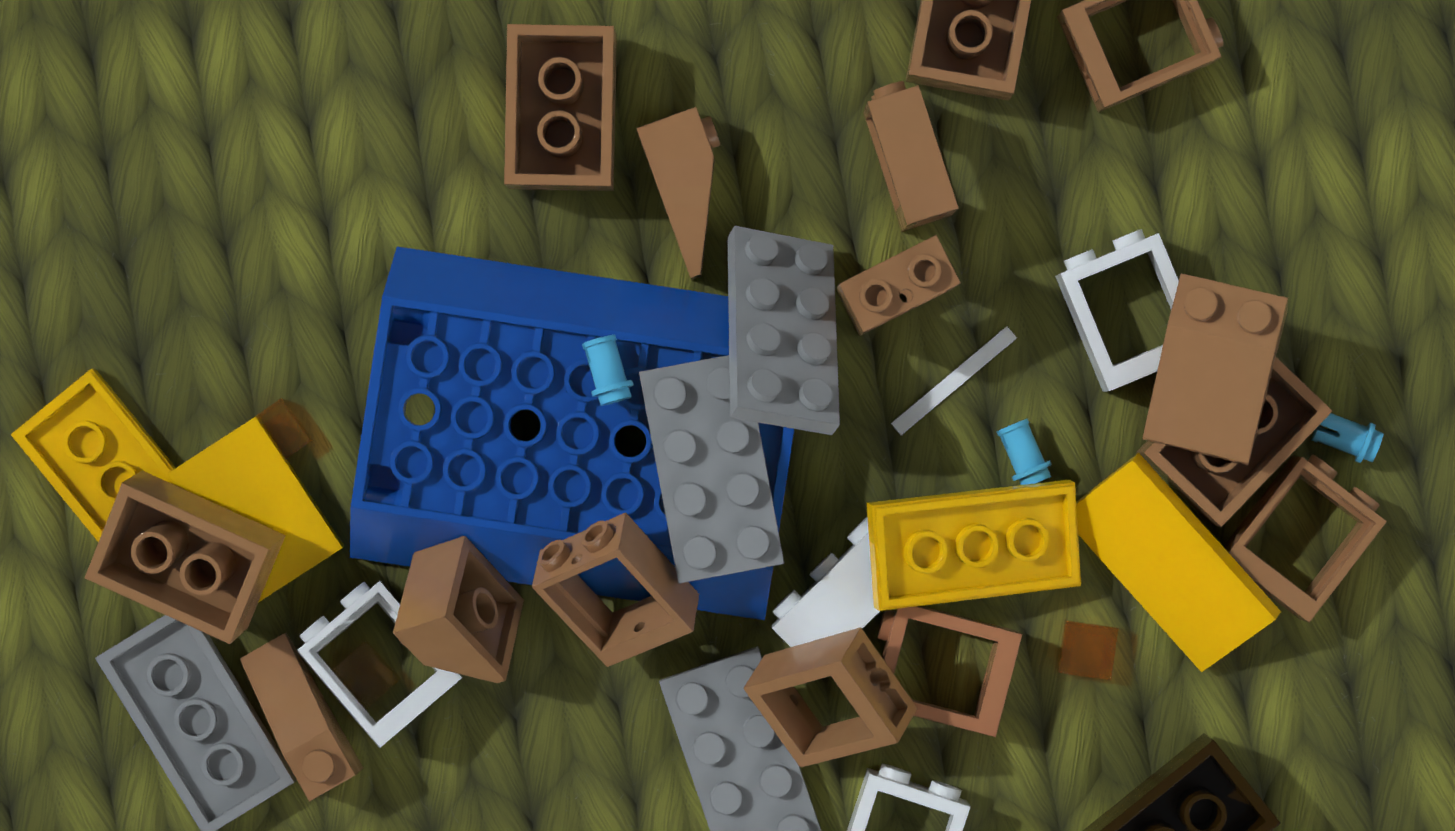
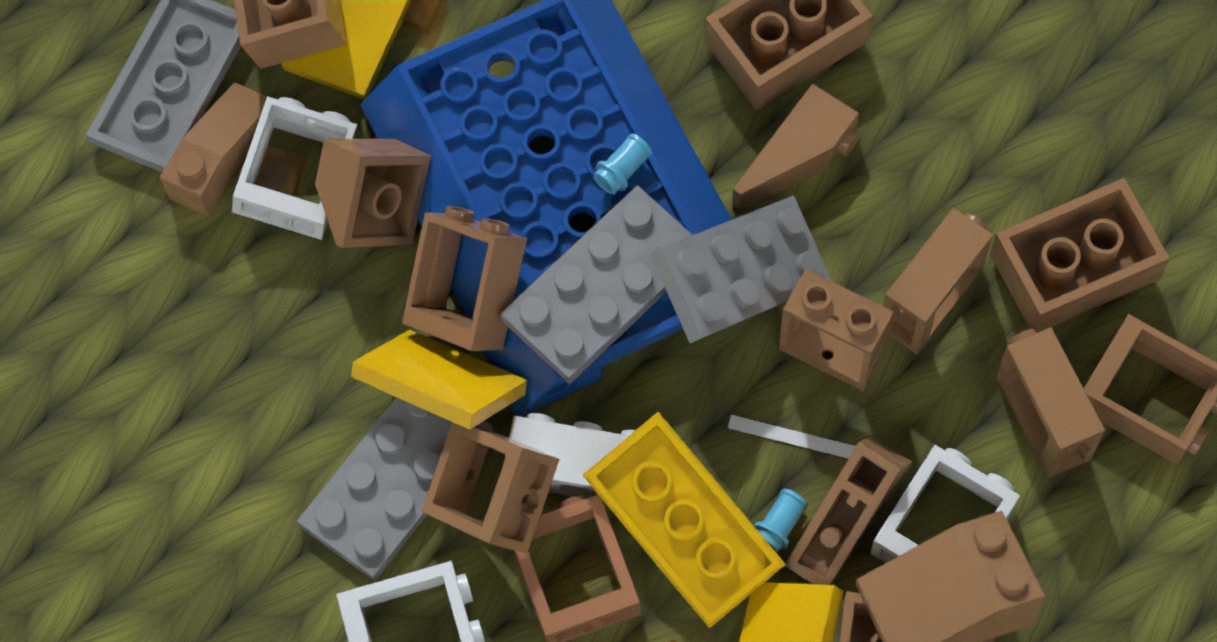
camera: 60 degrees right, 20 degrees down
(694, 675) = (439, 379): none -> yellow tile
(1060, 387) = (848, 511): none -> medium nougat slope
(1093, 143) = (1049, 401): none -> medium nougat window

